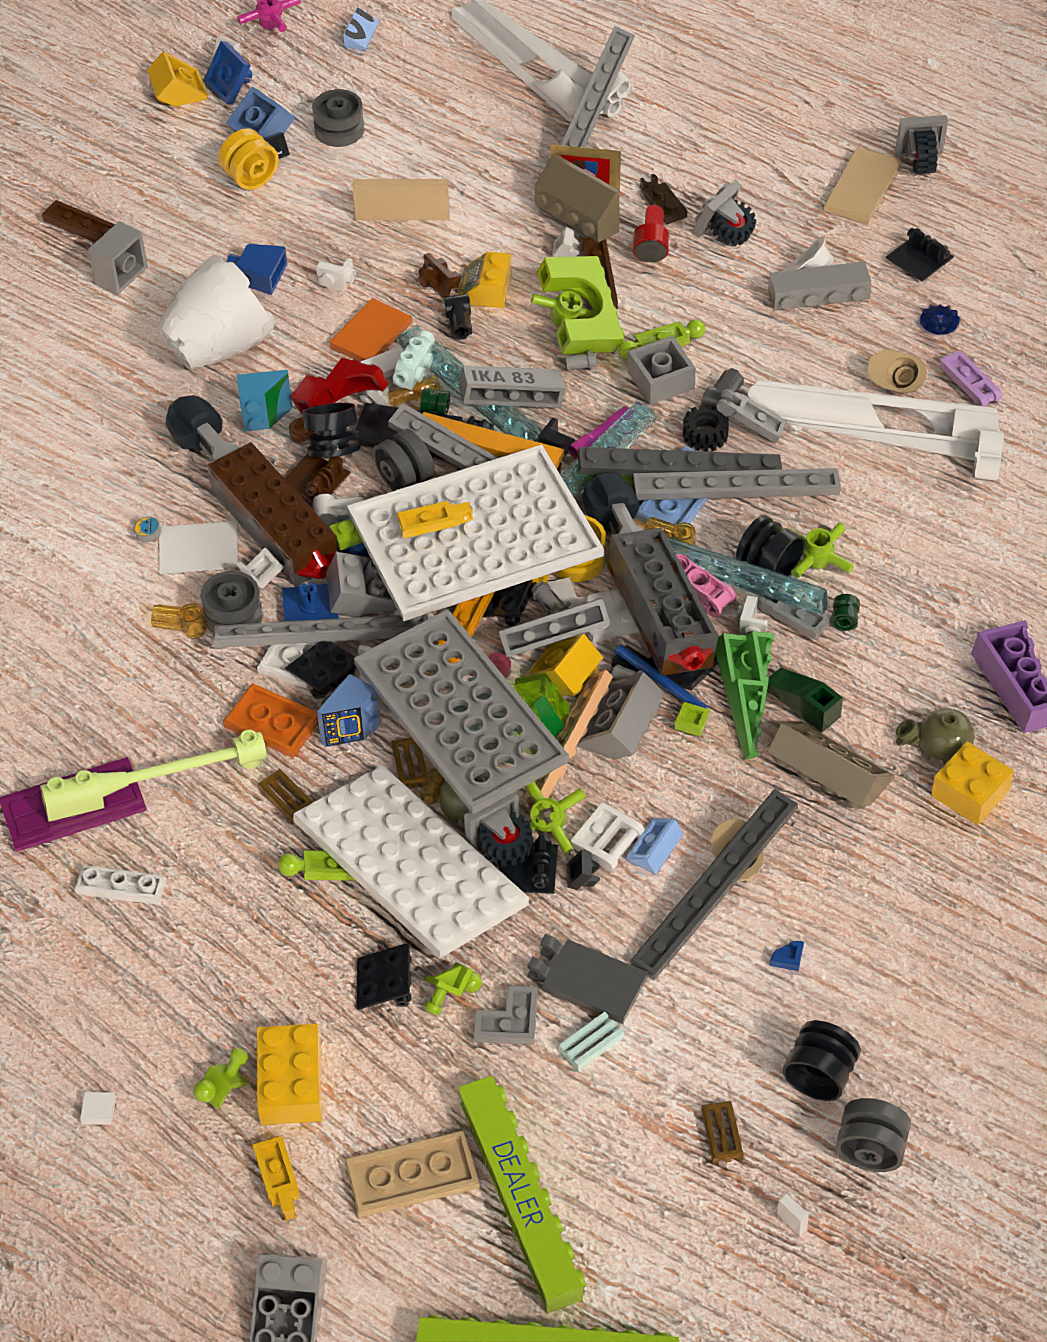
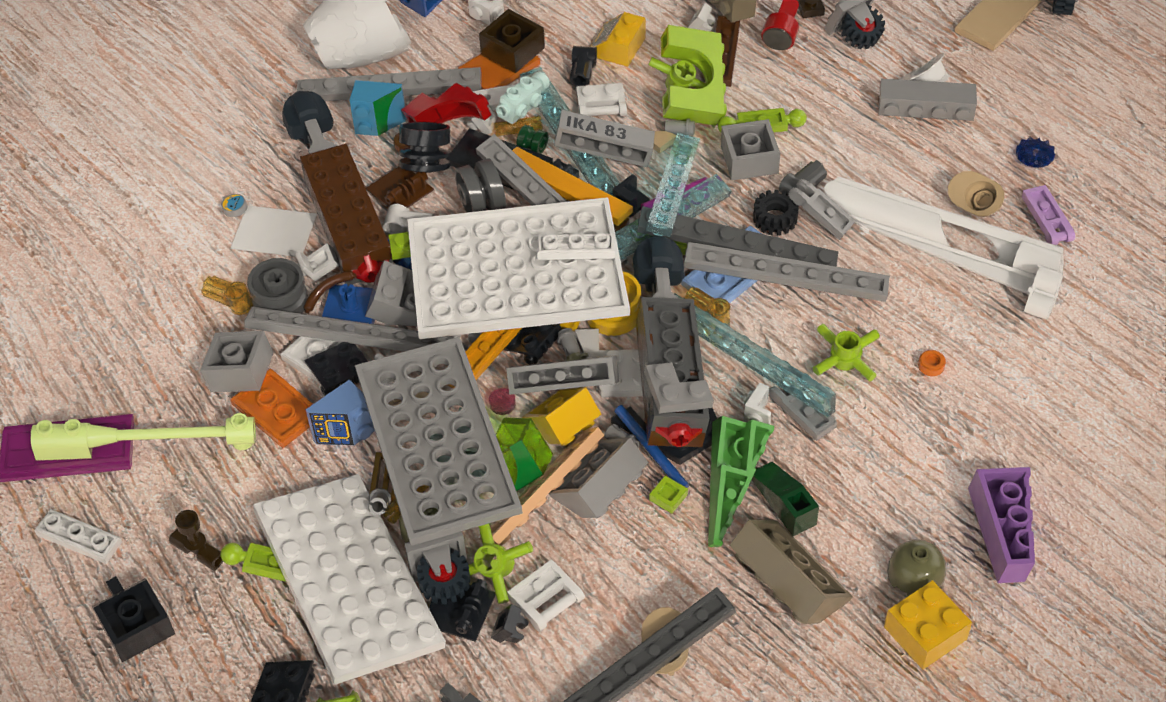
camera: 15 degrees right, 0 degrees up
(213, 945) = (133, 618): none -> black hinge
(220, 682) = (237, 361): none -> light grey brick
(246, 862) = (190, 540): none -> dark brown bar
(278, 589) = (326, 284): none -> reddish brown piece
(293, 788) = (253, 466): pearl gold tile -> none
(298, 365) = (412, 82): none -> light grey plate
(380, 303) = (512, 40): none -> dark brown brick
(411, 780) = (381, 495): none -> light grey pin
(433, 518) = (478, 246): yellow hinge -> none
(435, 274) = (576, 26): reddish brown hips -> none
(490, 347) = (601, 99): none -> white plate
(529, 499) = (576, 246): none -> white tile
(570, 376) = (663, 140): none -> tan tile
(601, 419) = (672, 185): none -> clear light blue plate
(655, 844) = (591, 614): light blue slope -> none
(679, 621) = (676, 396): none -> light grey plate
(710, 590) = (721, 364): bright pink piece -> none
(770, 546) = (797, 339): black wheel -> none
(845, 617) = (853, 419): dark green wheel -> none
(901, 544) = (931, 363): none -> orange tile
(908, 732) = (878, 556): olive plate -> none
(920, 255) = (1034, 88): black hinge -> none

